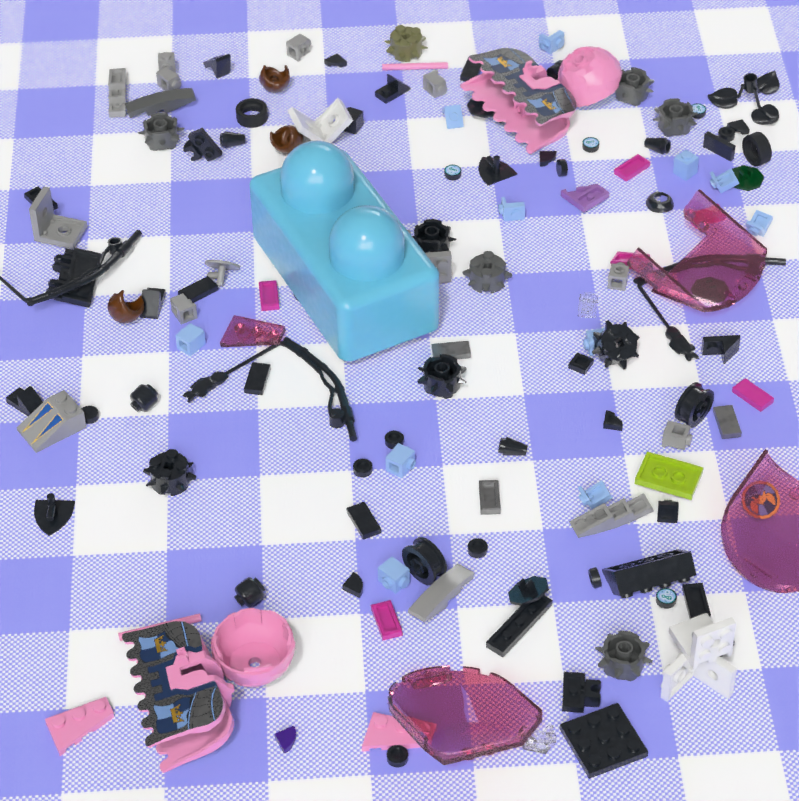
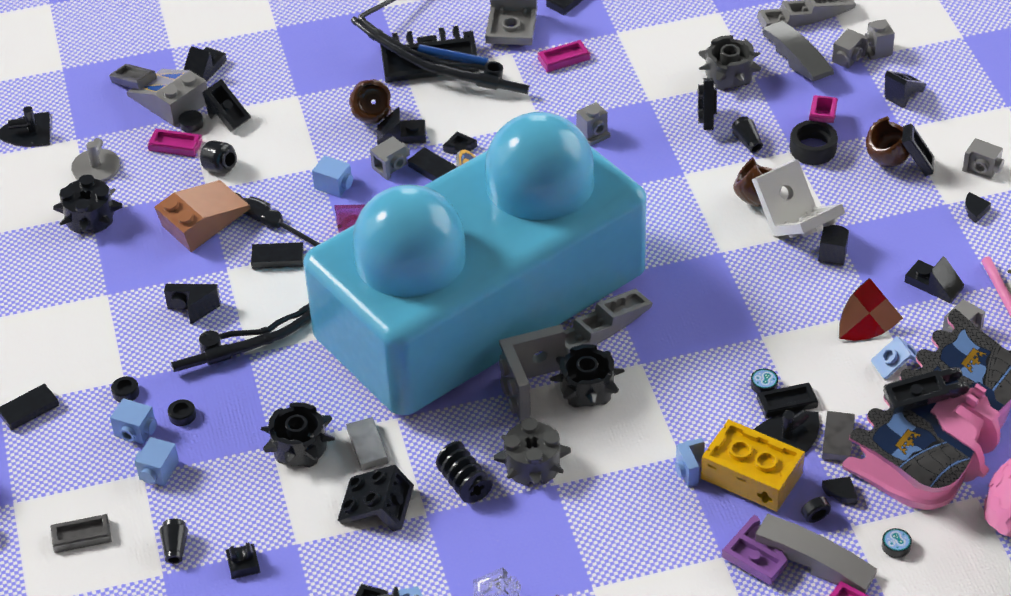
camera: 80 degrees right, 0 degrees up
(24, 441) = (132, 76): none -> flat silver tile
(88, 387) = (224, 104): none -> black slope
(89, 261) = (452, 55): none -> blue bar
(106, 212) = (563, 56): none -> dark pink tile
(109, 426) = (175, 142): none -> dark pink tile
(113, 473) = (96, 161): none -> light grey shield
(177, 275) = (459, 142): none -> black tile
(192, 205) = (593, 123): none -> light grey brick
(204, 411) = (200, 212): none -> nougat slope
(228, 99) = (823, 109): none -> dark pink slope
(281, 62) = (918, 149): none -> black tile
(291, 421) = (196, 298): none -> black slope
(417, 117) = (867, 314): none -> shield
(441, 450) = (156, 461): none -> light blue brick
(469, 166) = (789, 398): none -> black tile
(492, 304) = (463, 472): none -> black piece
(501, 350) = (379, 493): none -> black bracket
(505, 151) = (836, 436): none -> flat silver tile
(524, 83) = (924, 389): none -> black hinge
(526, 181) = (752, 465): none -> yellow piece
(534, 417) = (242, 560): none -> black tile
(594, 172) = (822, 555): none -> light grey slope

